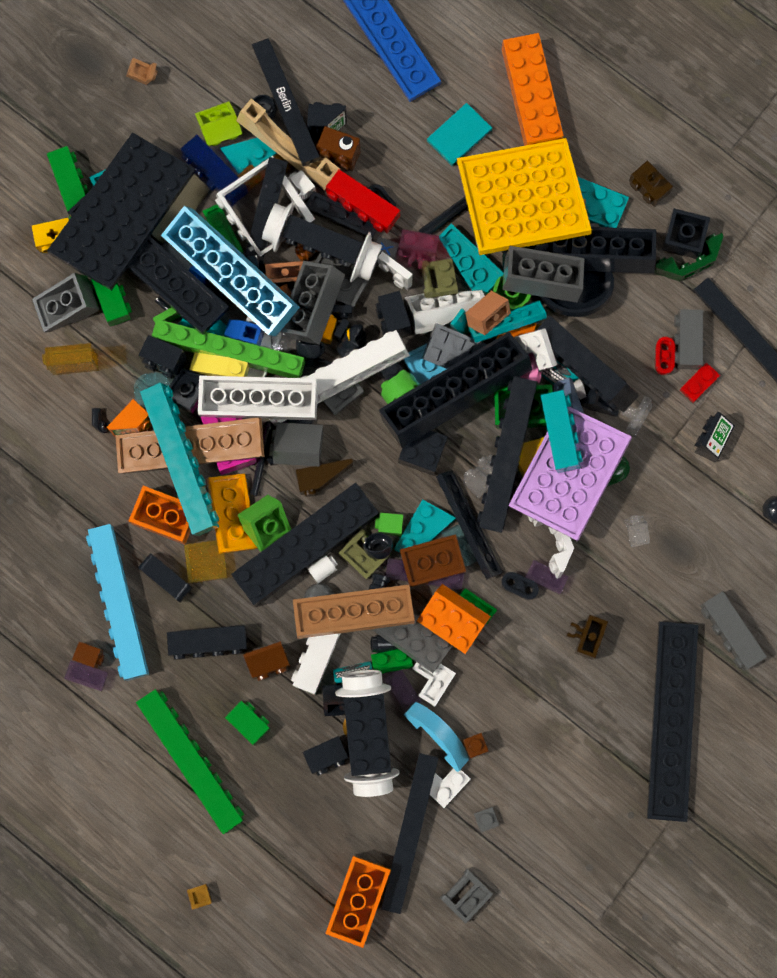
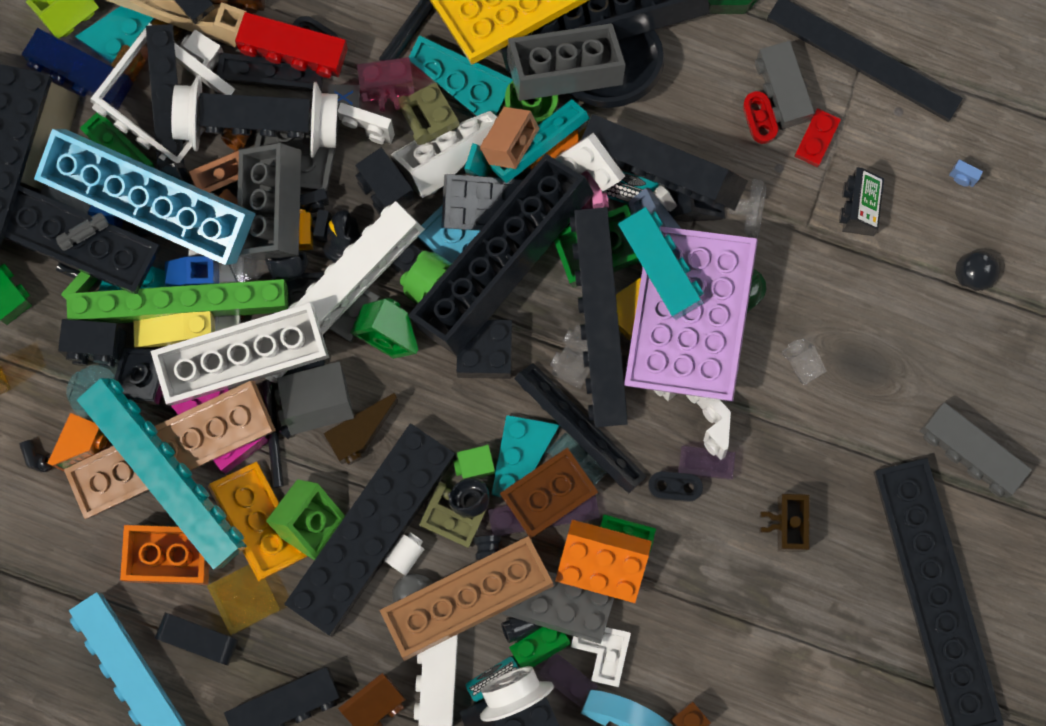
camera: 20 degrees left, 0 degrees up
(180, 281) = (82, 231): none -> dark grey axle
(361, 413) = (386, 328): none -> green slope

